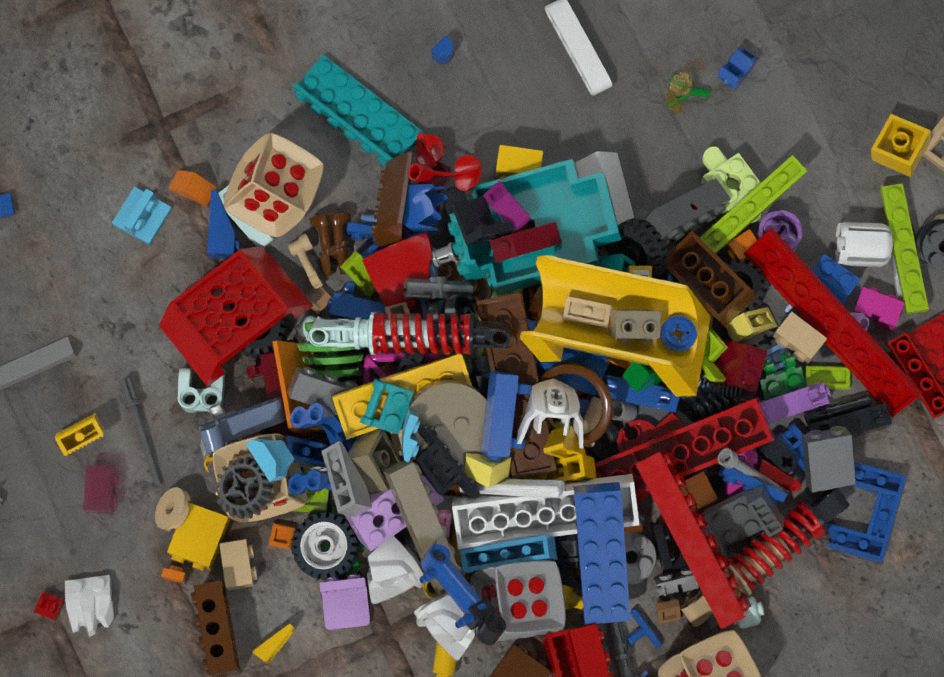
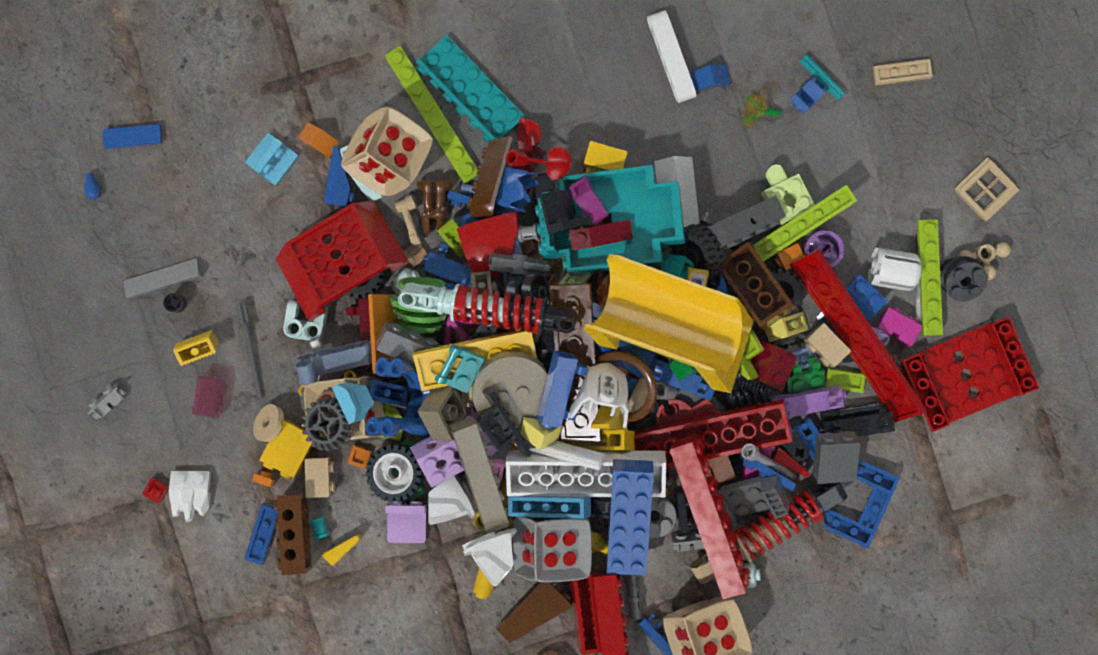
camera: 10 degrees right, 10 degrees up
(45, 388) = (171, 301): none -> black wheel
(179, 640) = (262, 534): none -> blue tile
(245, 623) = (319, 528): none -> teal bush
(318, 144) = (432, 114): none -> lime plate
(346, 483) = (416, 434): light grey slope -> none
(409, 442) = (475, 400): medium azure slope -> none
(443, 51) = (552, 45): blue brick -> none
(476, 611) = (513, 556): blue piece -> none
(586, 312) = (646, 308): tan plate -> none
(625, 63) = (710, 77): none -> blue slope
(635, 324) = (686, 326): dark tan brick -> none
(645, 629) = (657, 577): blue piece -> none
(668, 610) = (679, 565): medium nougat tile -> none
(685, 326) = (730, 332): blue gear -> none
(741, 40) = (834, 89): none -> teal axle
(839, 31) = (902, 72): none -> tan tile
(900, 145) = (941, 184): yellow brick -> none

